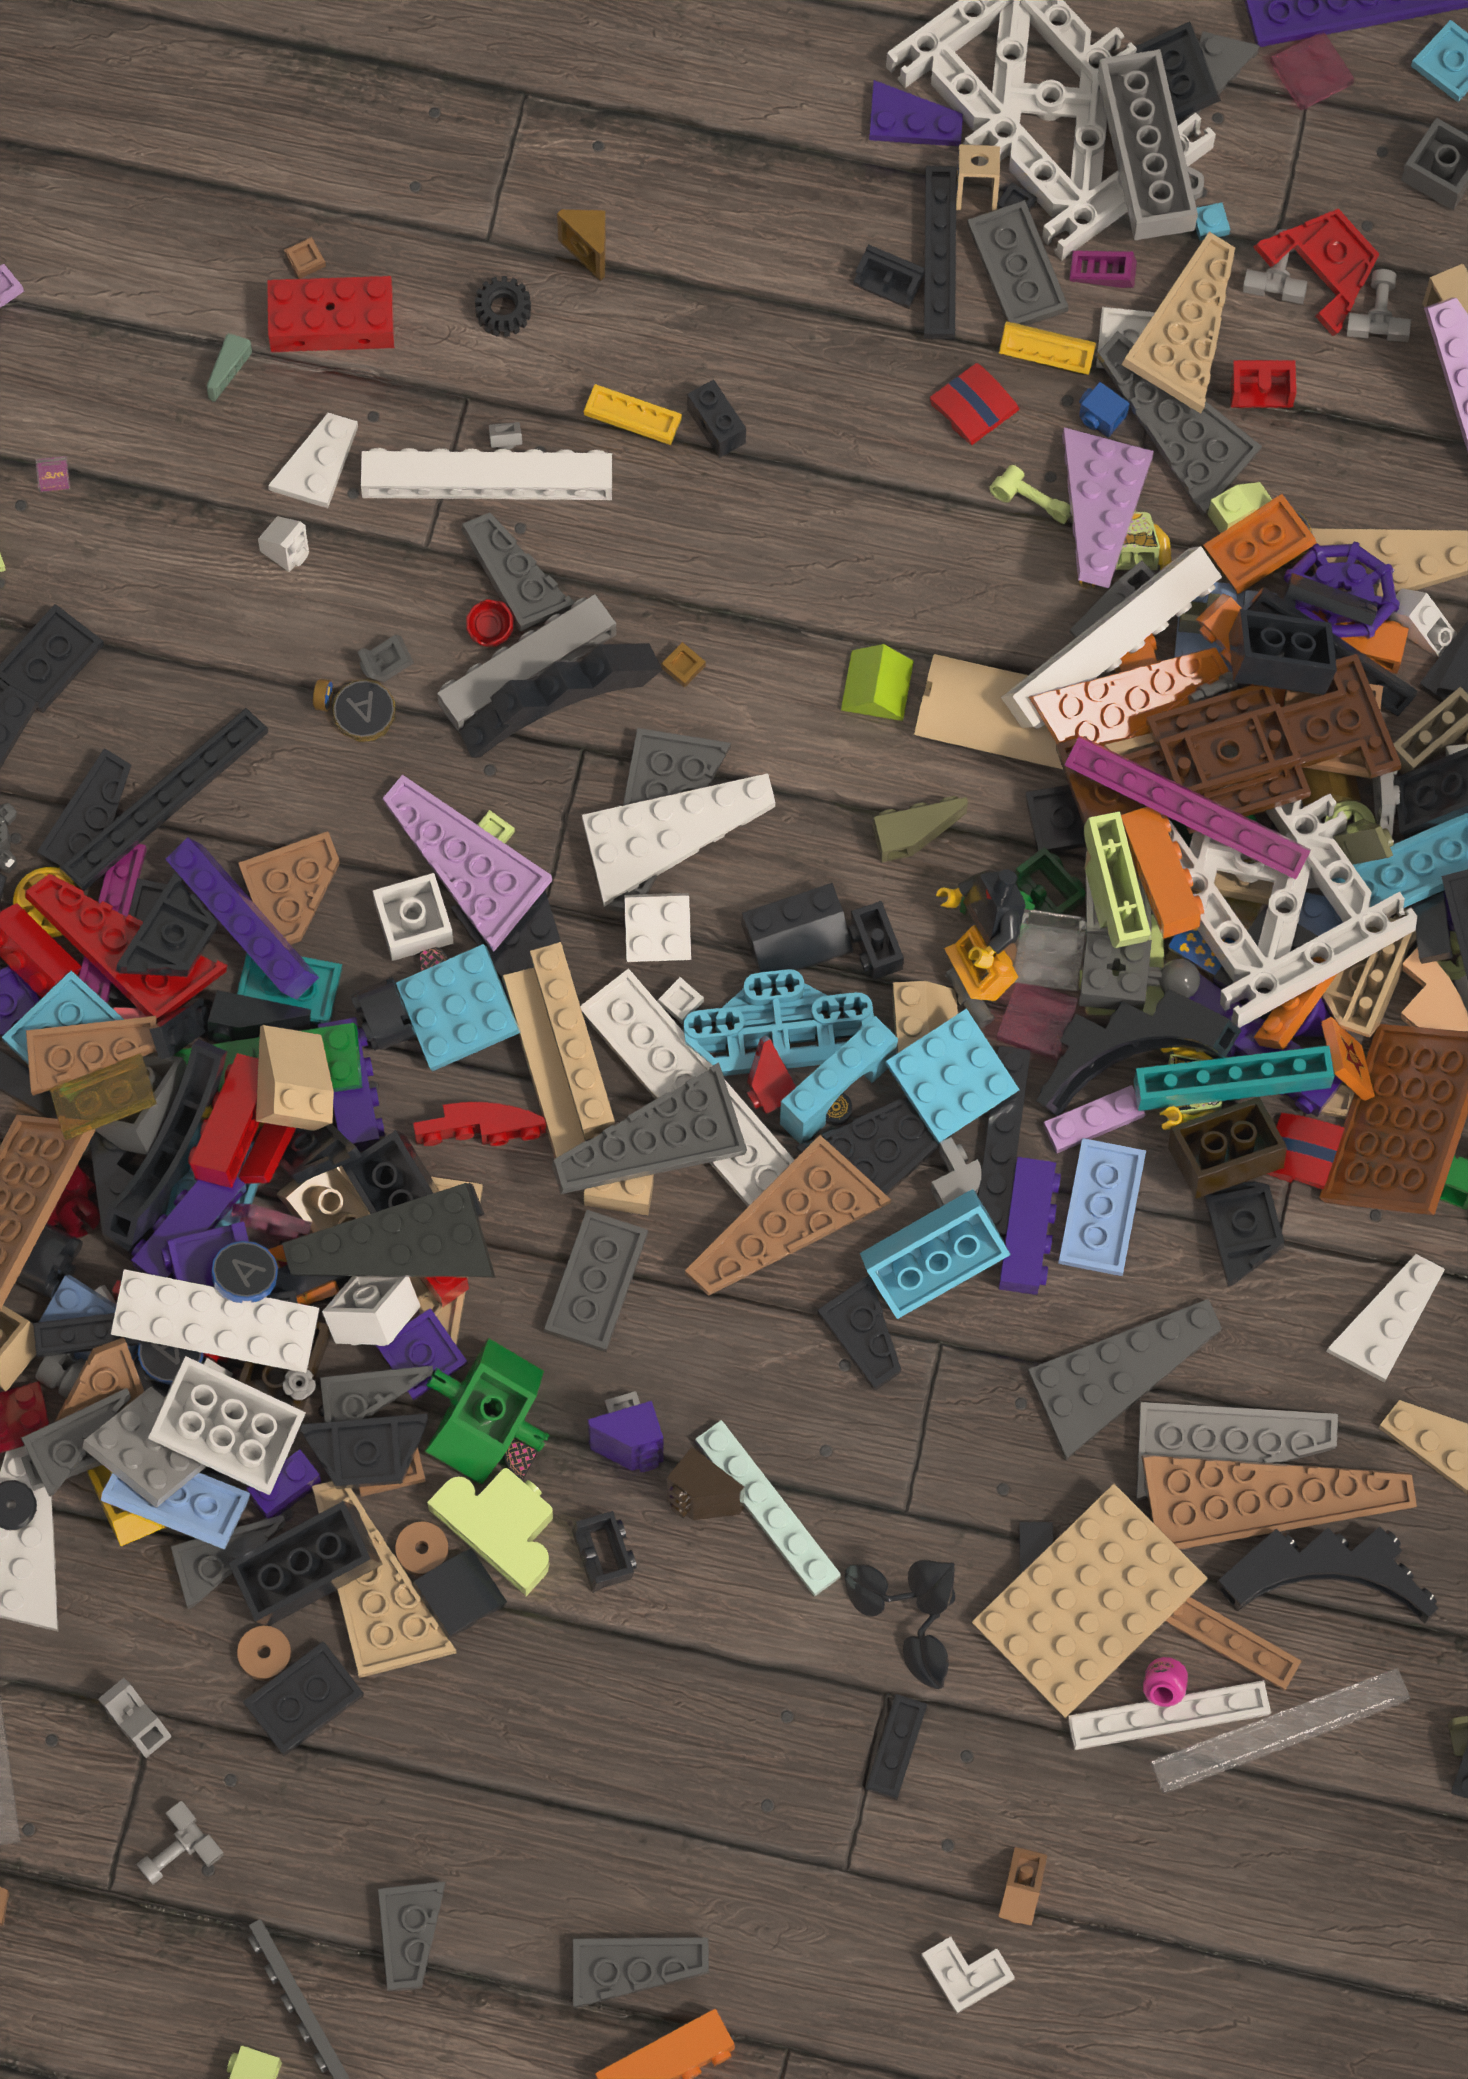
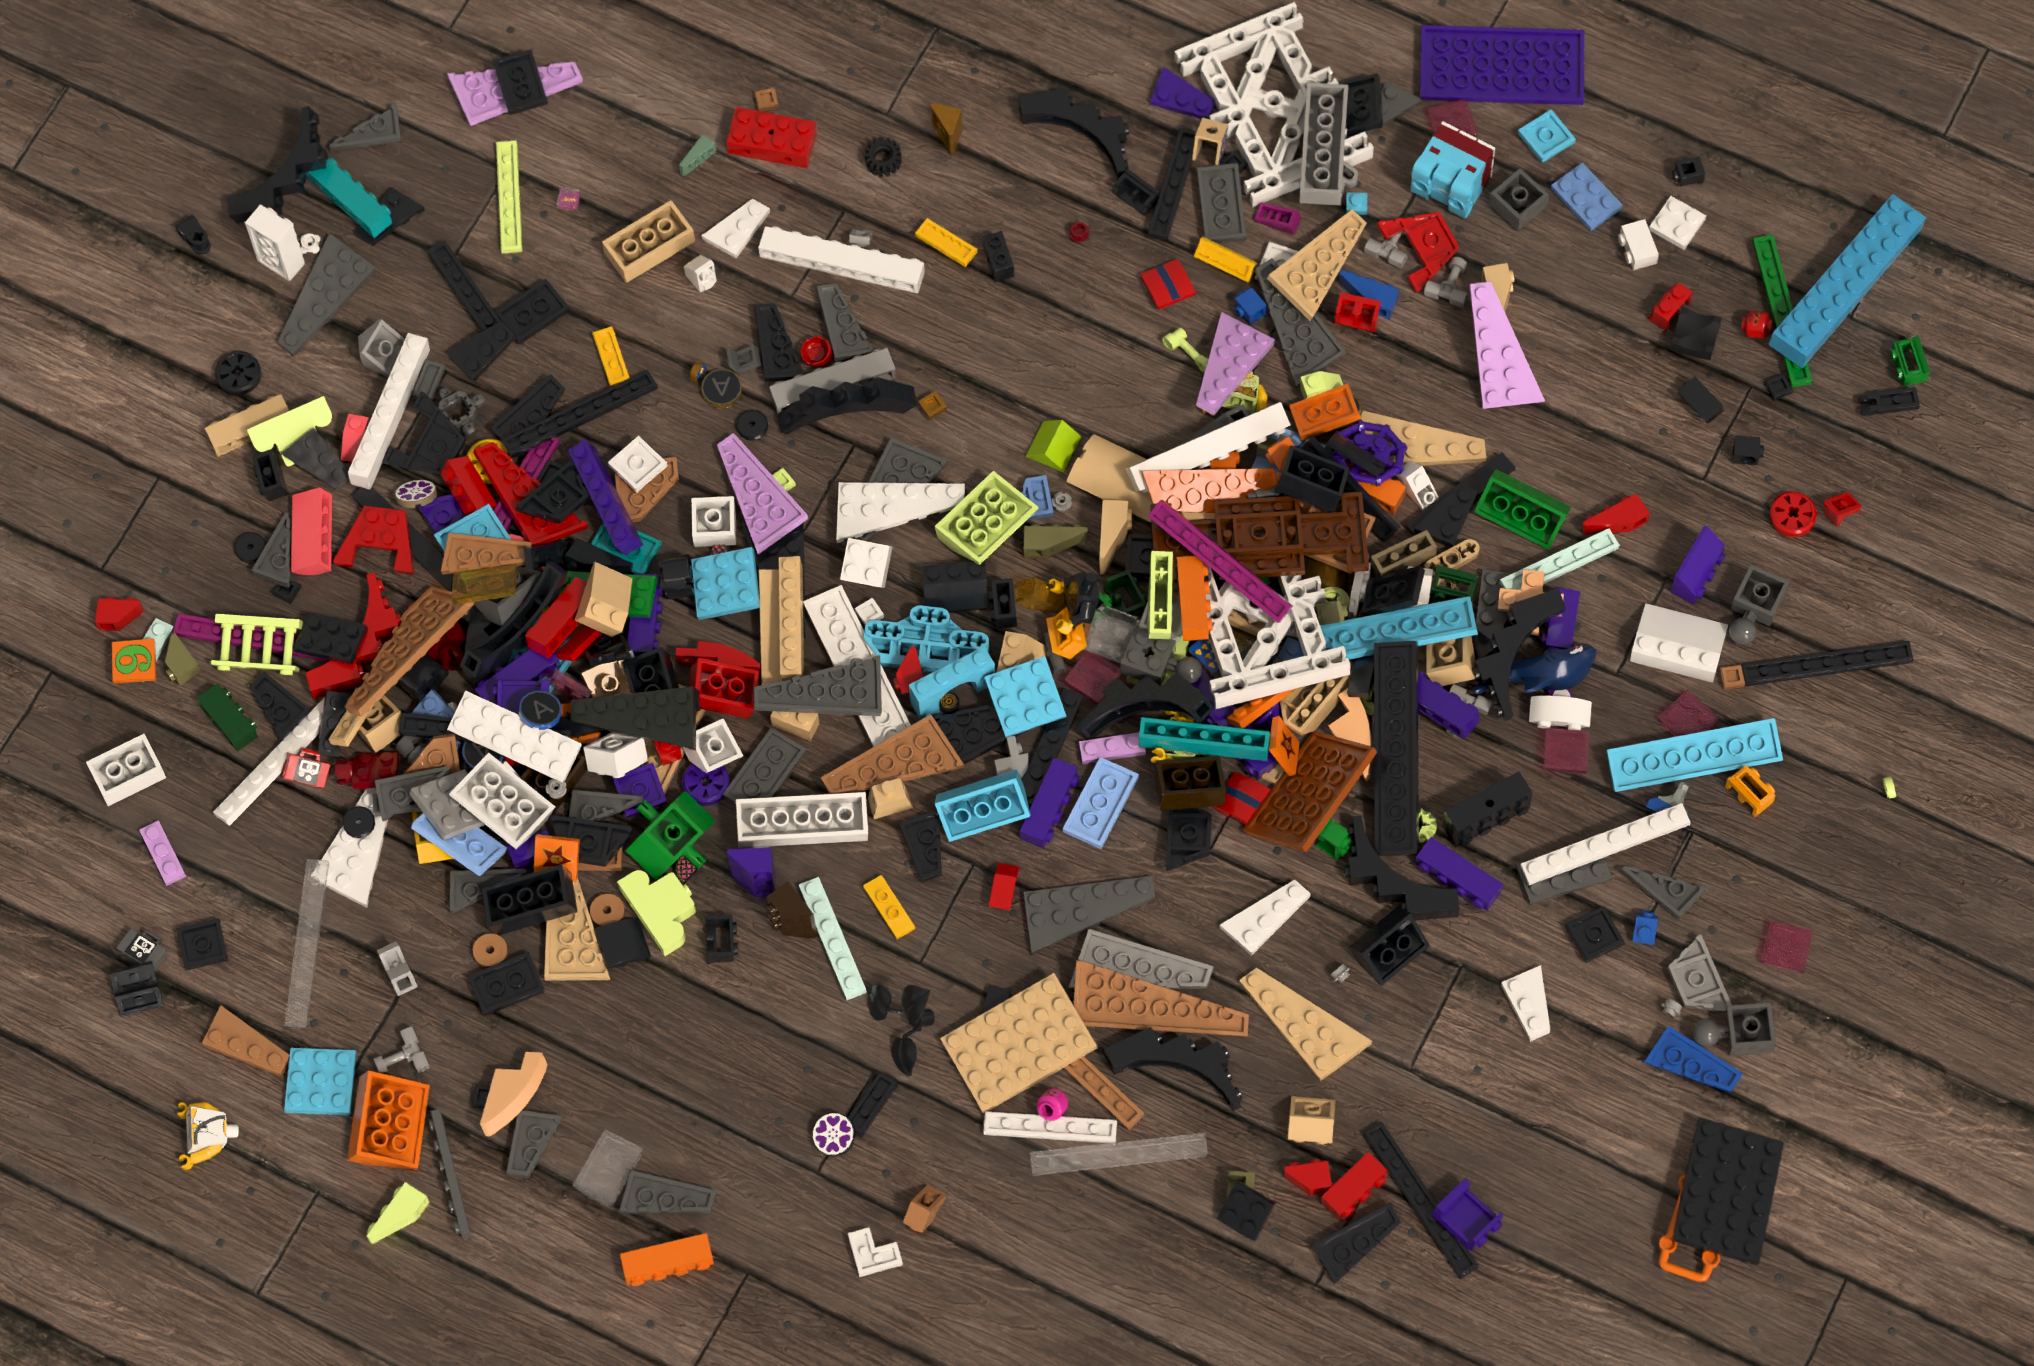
camera: 20 degrees right, 5 degrees down
(65, 1918) = (320, 1081): none -> medium azure plate
(185, 700) = (610, 356): none -> yellow tile
(186, 1956) = (388, 1121): none -> orange slope
(193, 513) = (648, 241): none -> tan brick
(275, 856) = (637, 464): none -> white plate
(320, 1879) = (480, 1096): none -> black tile
(325, 1483) = (554, 851): none -> orange tile
(362, 1864) = (512, 1091): none -> light nougat slope
(426, 628) = (775, 346): none -> black wing
(428, 767) = (752, 417): none -> black piece
(503, 1166) = (724, 687): none -> red brick
(517, 1262) = (713, 747): none -> white slope
(527, 1302) = (707, 794): none -> dark purple wheel
(536, 1942) = (608, 1167): none -> clear tile
(675, 1341) = (801, 820): none -> white brick
(739, 177) = (1058, 109): none -> black arch
(793, 1277) = (888, 798): none -> tan torso
(815, 820) = (985, 518): none -> yellowish green slope
(822, 355) = (1079, 232): none -> dark red plate
(837, 1439) = (889, 907): none -> yellow plate
(857, 1807) = (833, 1134): none -> tile
(874, 773) = (1038, 492): none -> medium blue wing
(910, 773) = (1061, 507): none -> light grey plate
(922, 917) = (1037, 596): none -> clear yellow slope
(998, 1367) = (1004, 886): none -> red slope
(1003, 784) = (1114, 529): none -> tan slope
(1269, 345) = (1371, 289): none -> blue slope
(1343, 140) = (1453, 169): none -> medium azure piece

